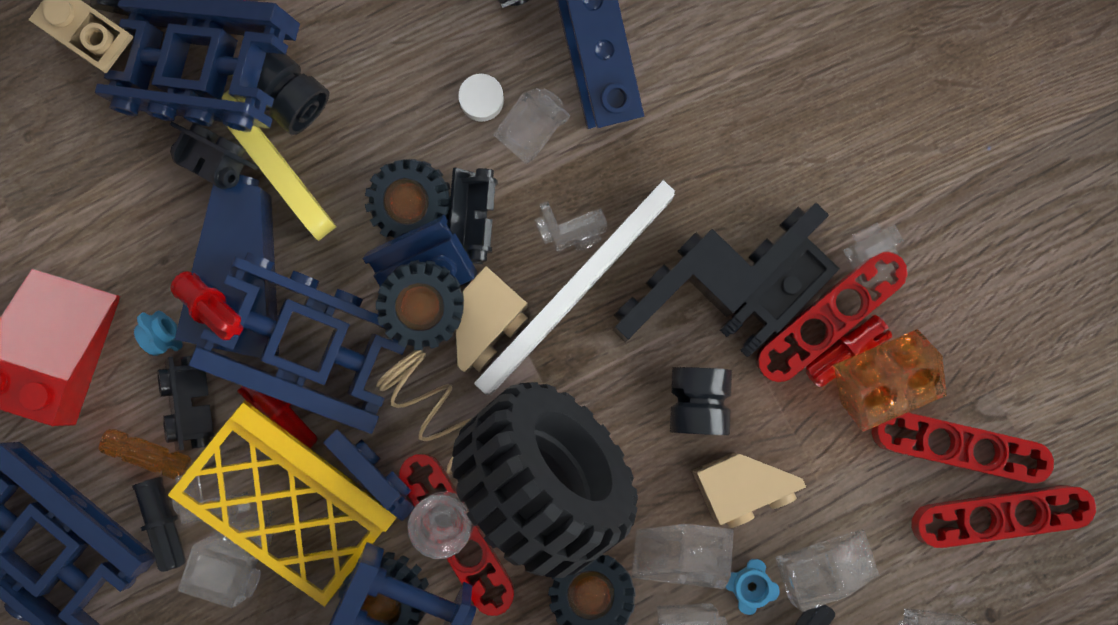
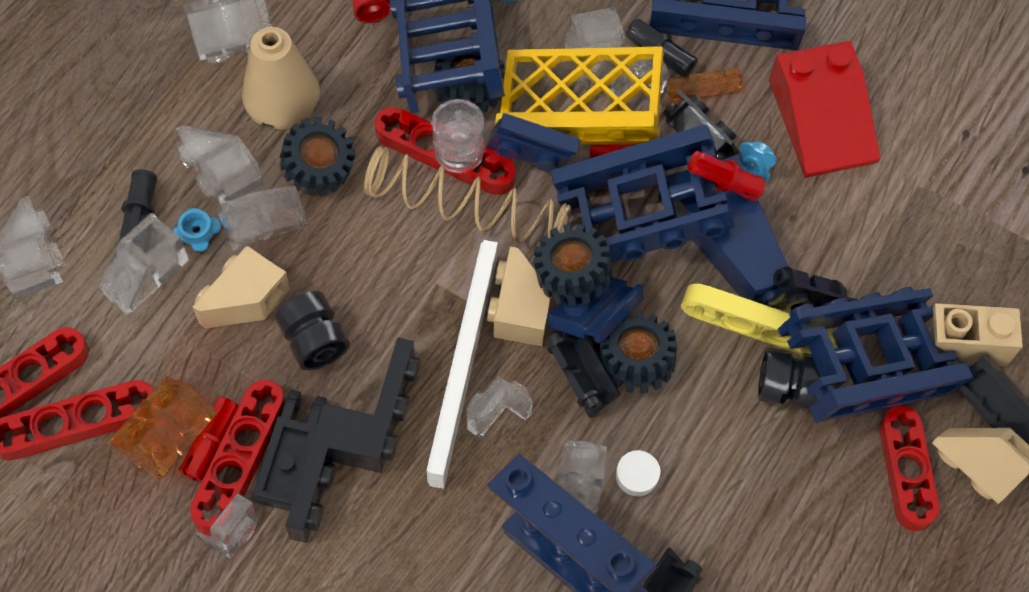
camera: 150 degrees right, 20 degrees down
(544, 480) = (375, 226): black tyre -> none

